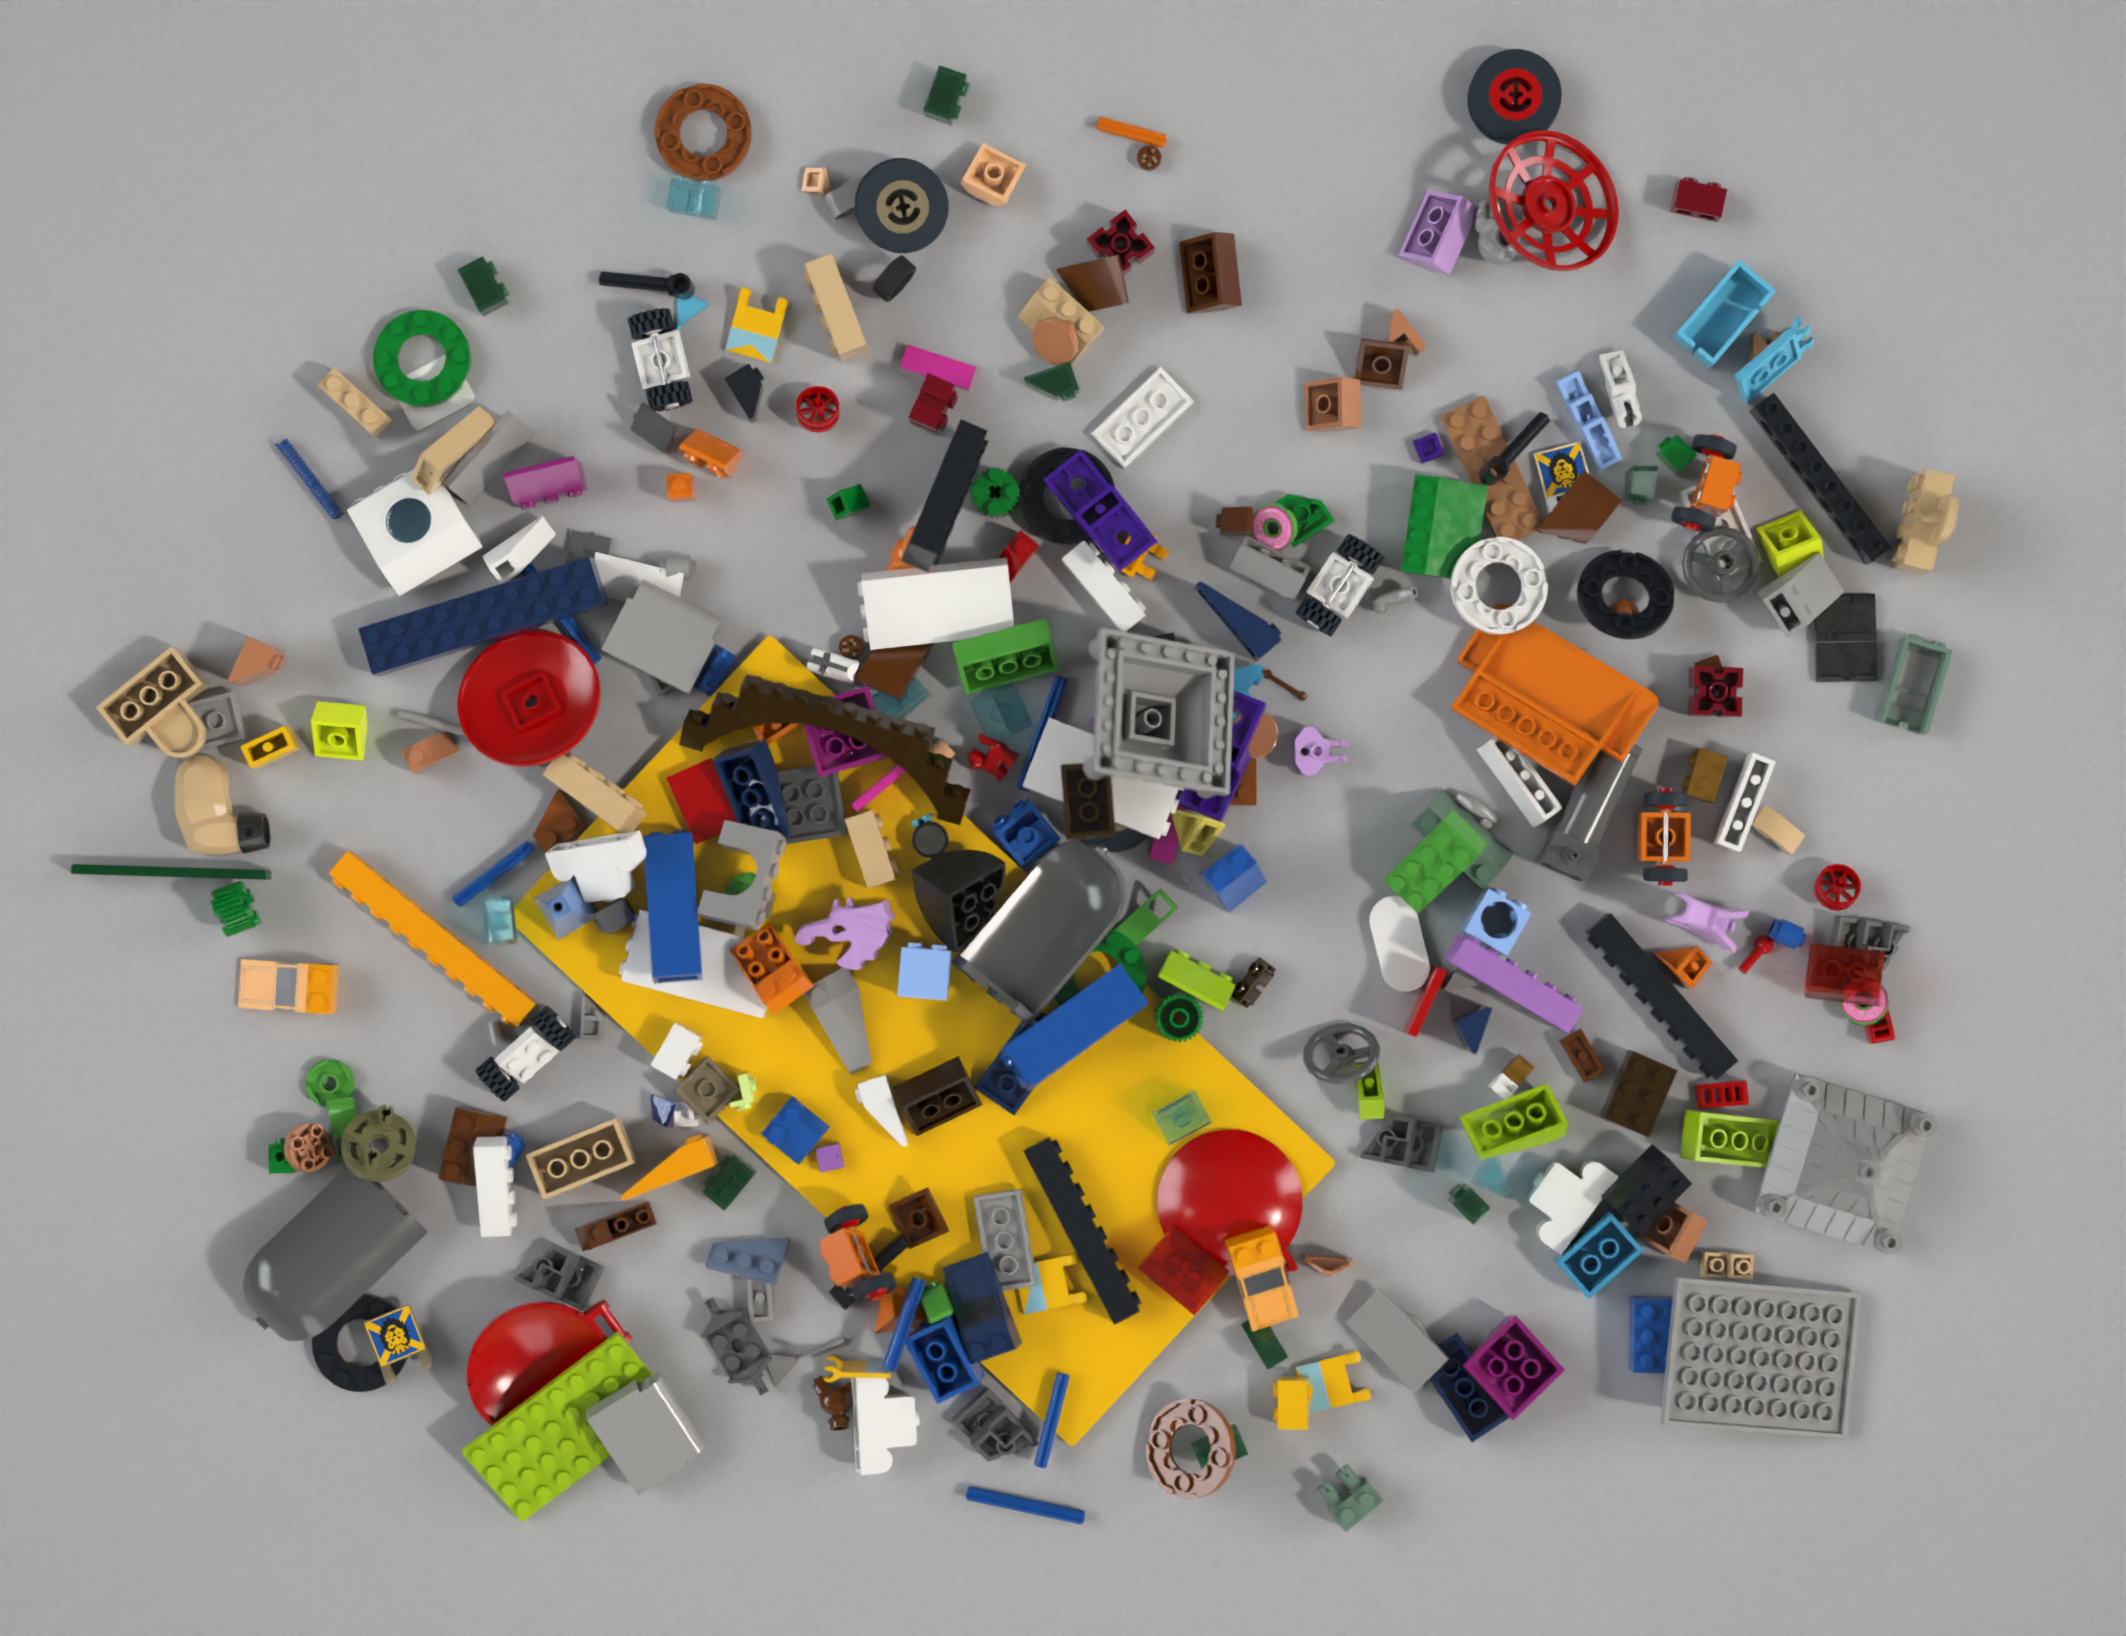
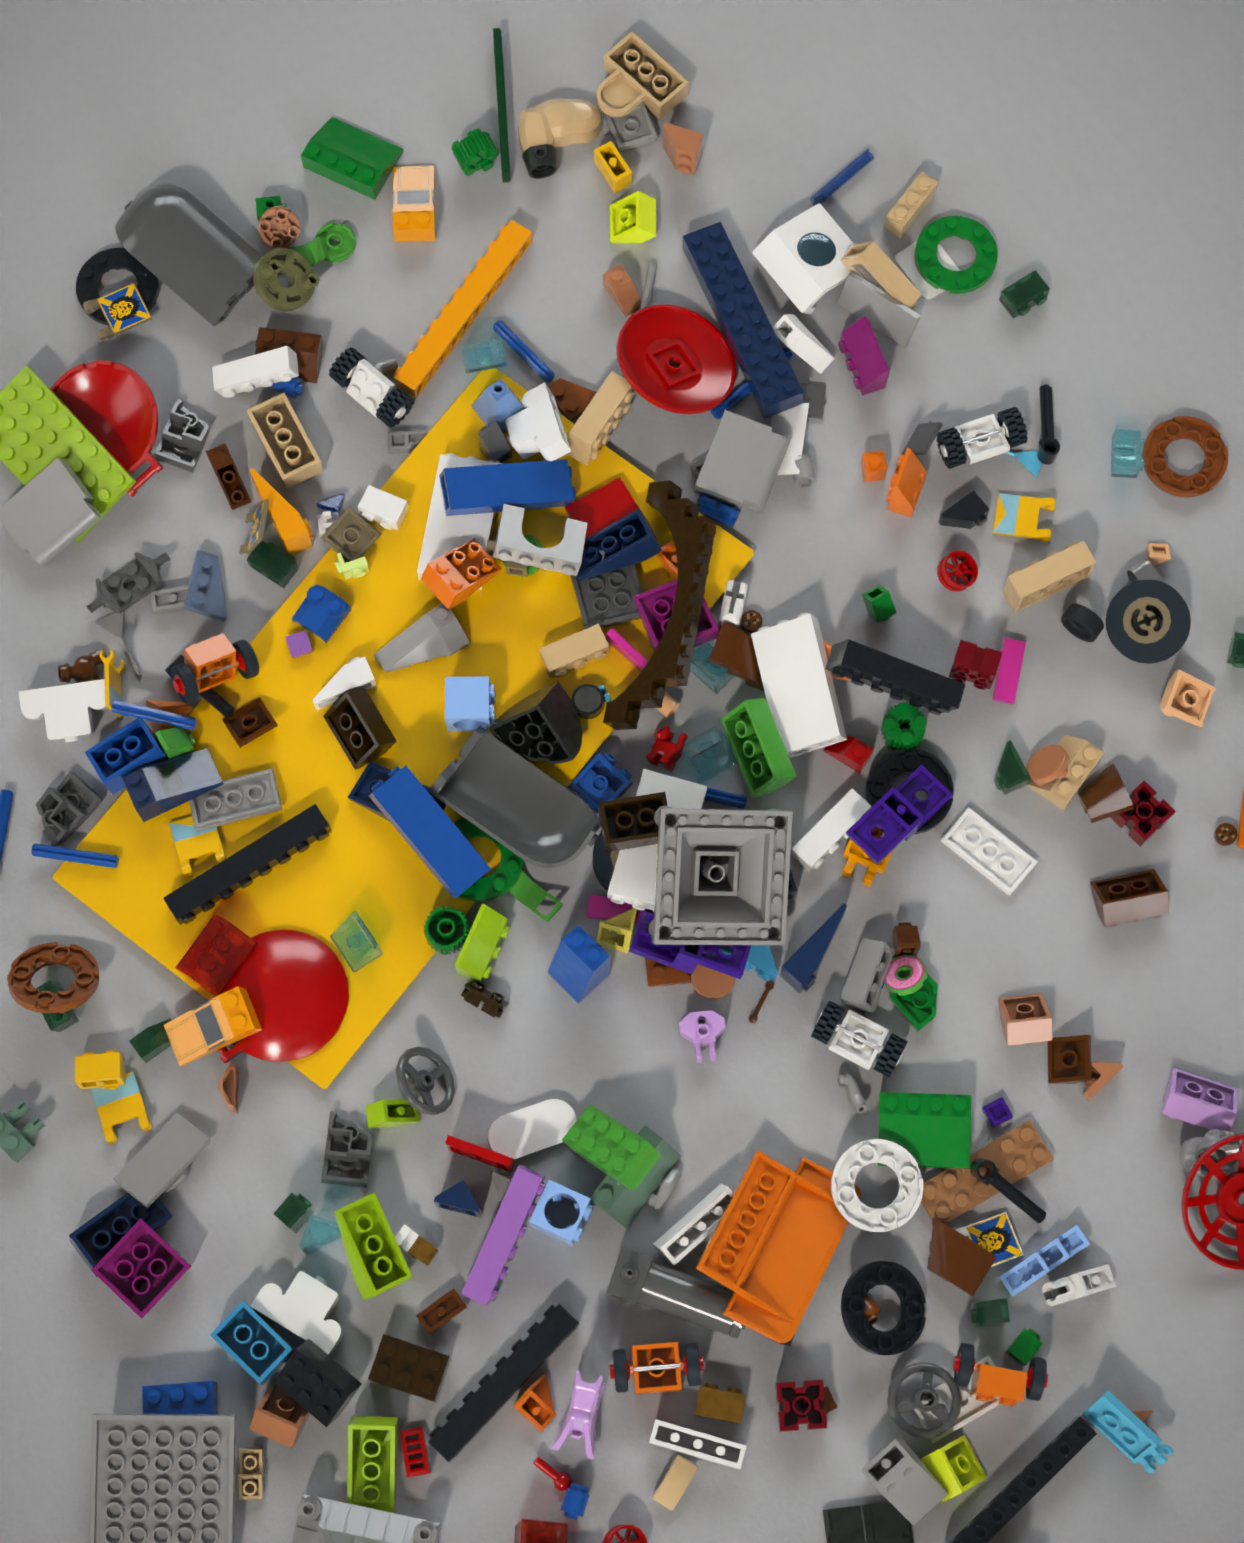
camera: 85 degrees right, 15 degrees down
(220, 1055) = (351, 157): none -> green slope
(690, 1195) = (258, 523): none -> flag
(864, 927) = (504, 650): lavender animal -> none
(1724, 314) = (1165, 1379): medium azure piece -> none

